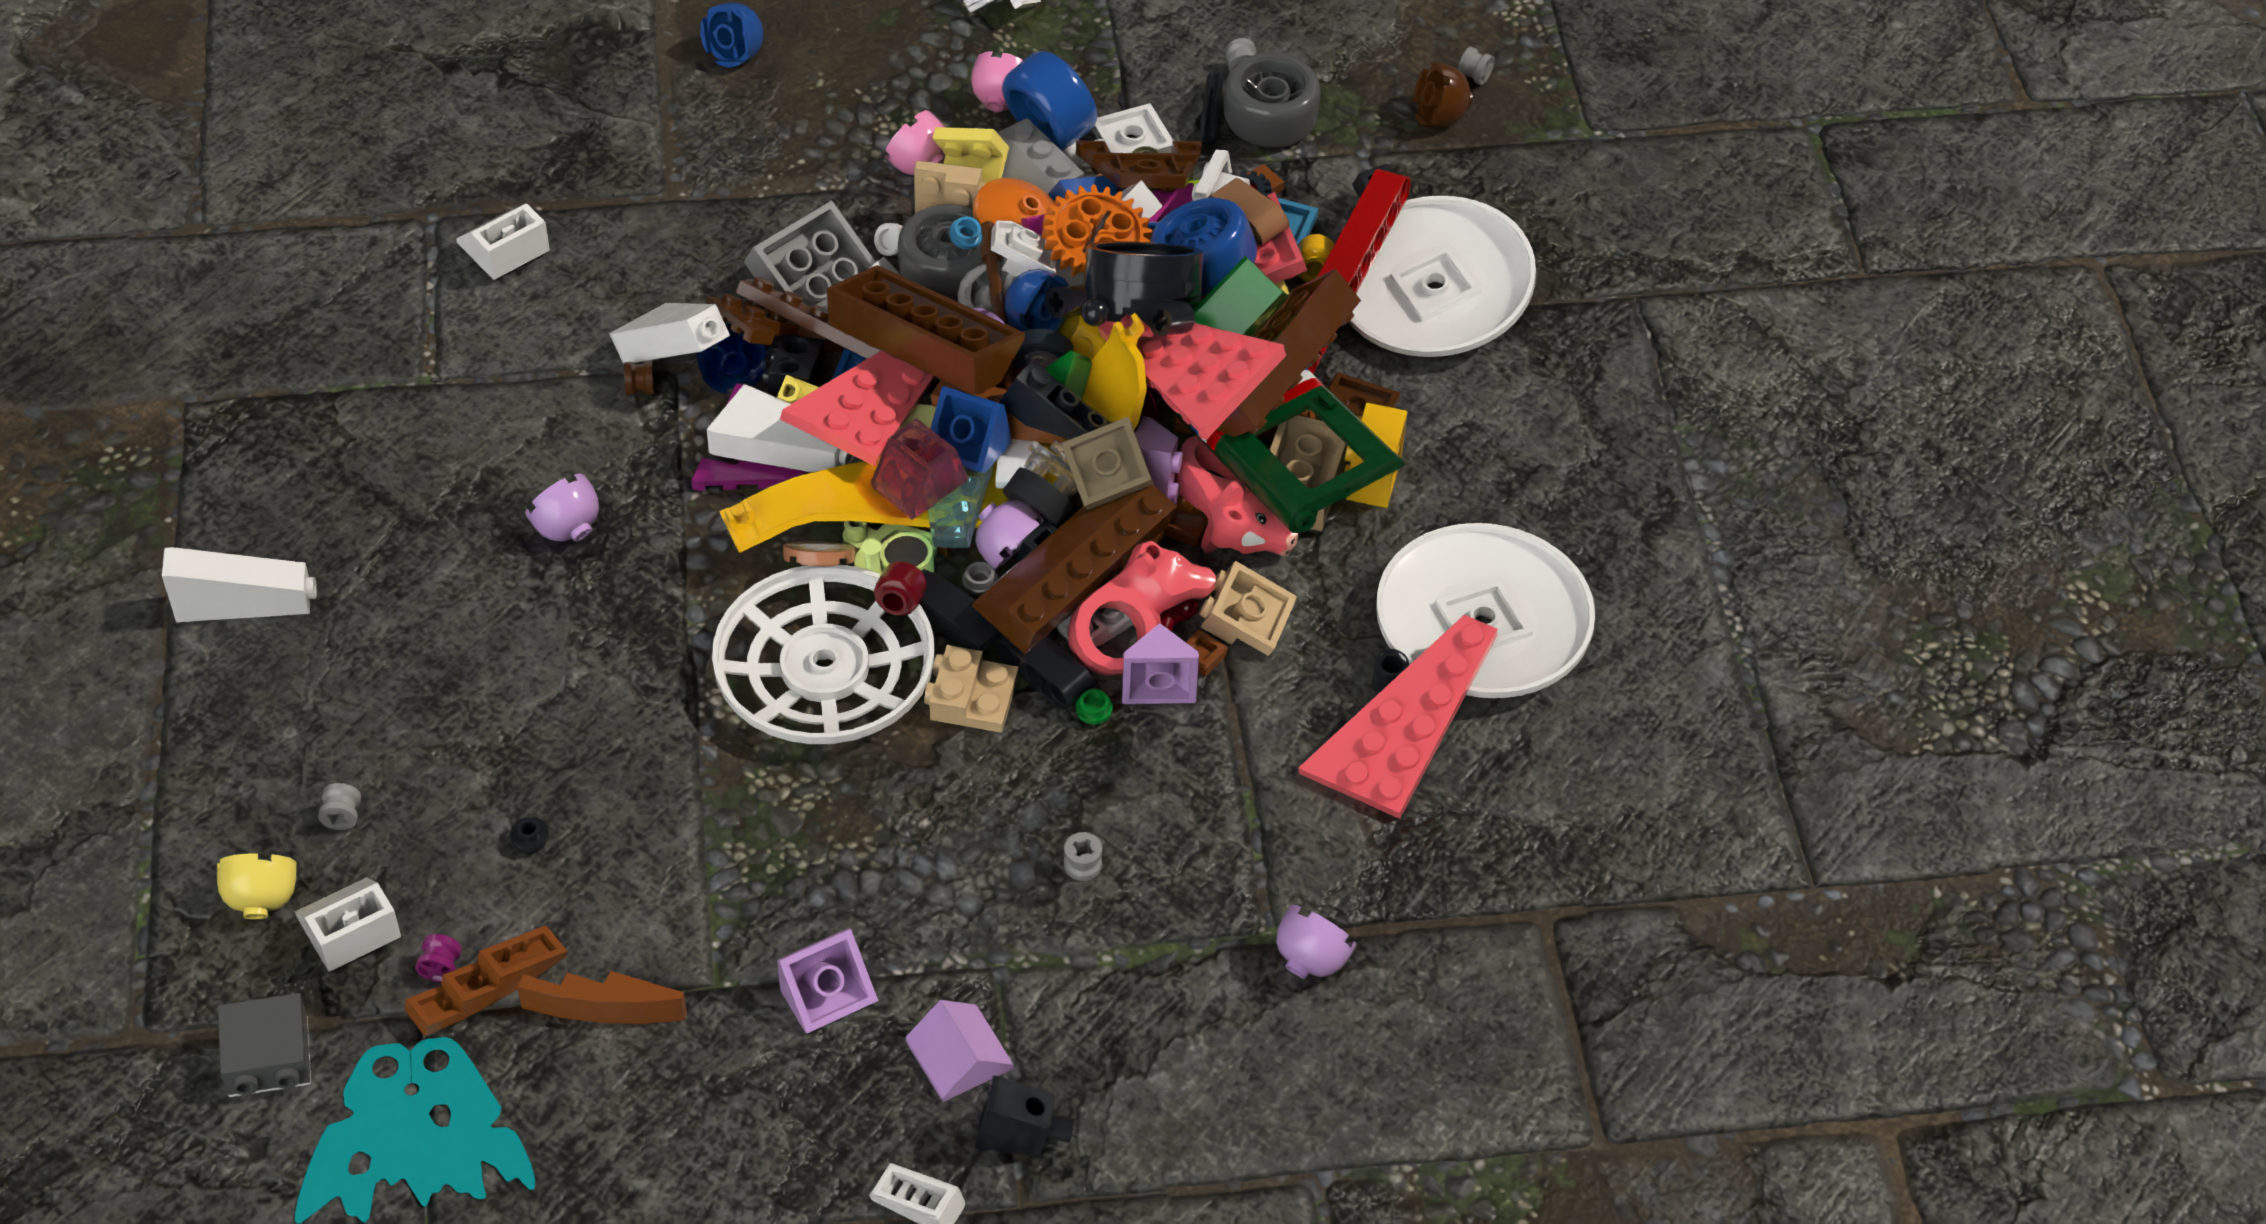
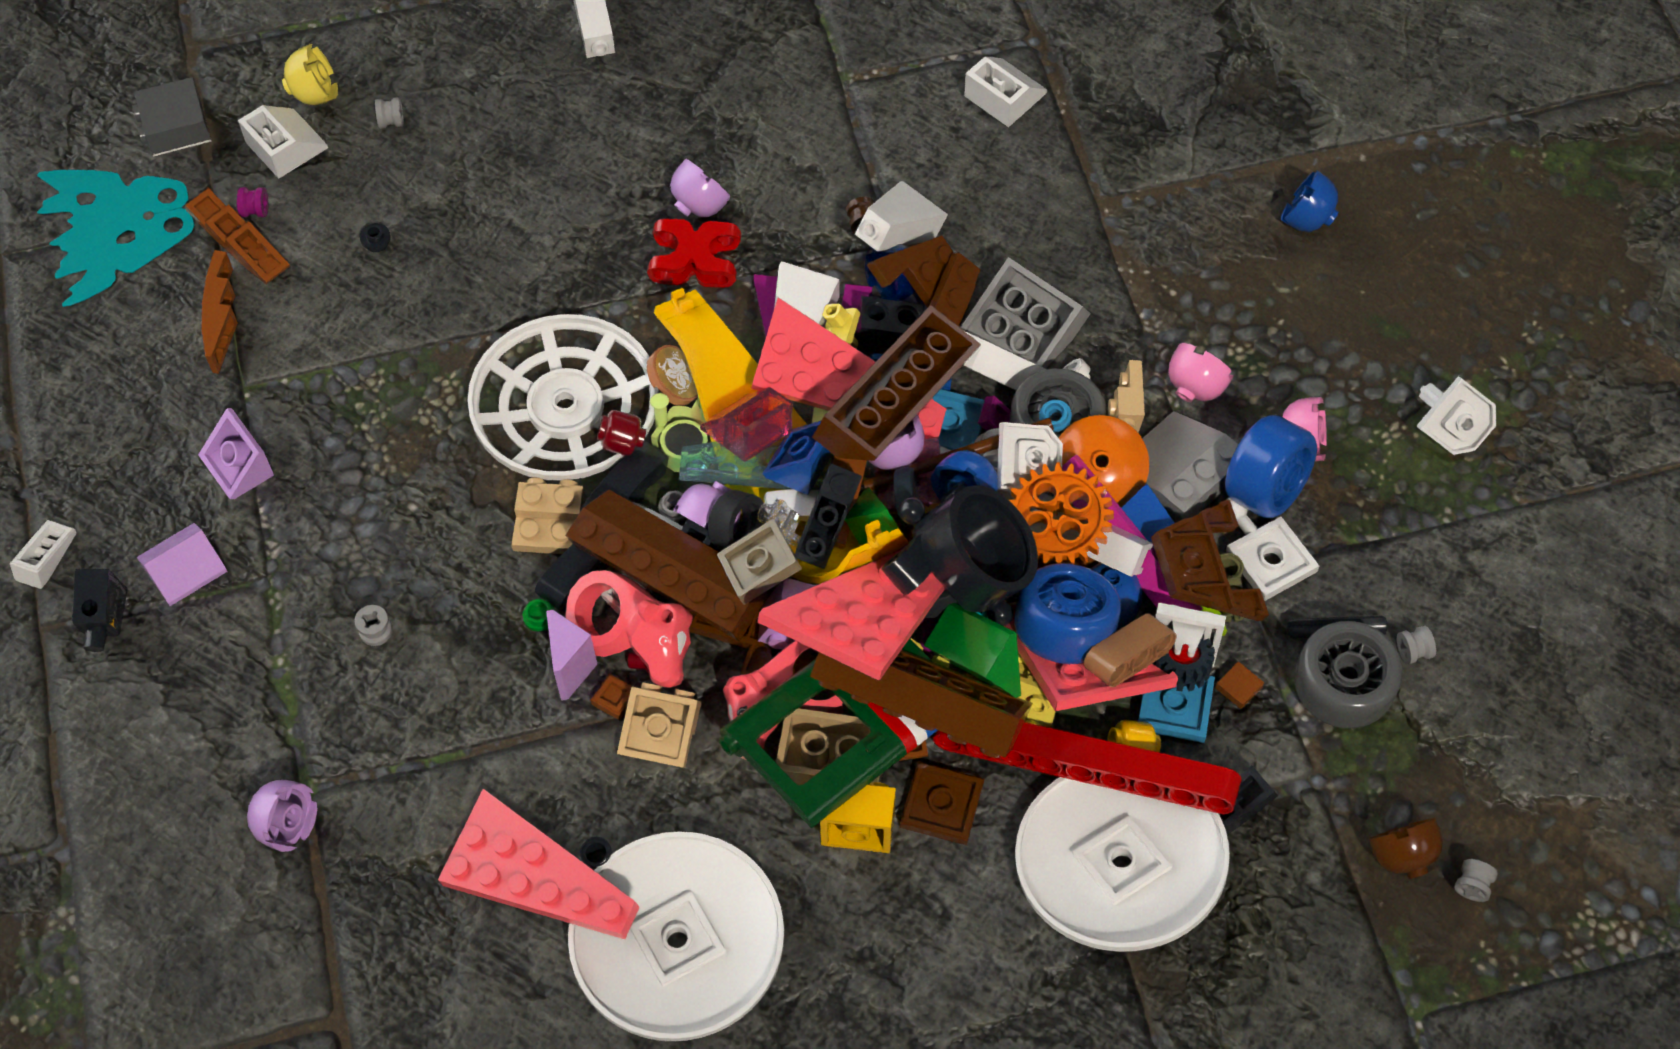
camera: 85 degrees right, 10 degrees up
(647, 528) = (694, 253): none -> red piece
(973, 149) = (1177, 419): light yellow bracket -> none

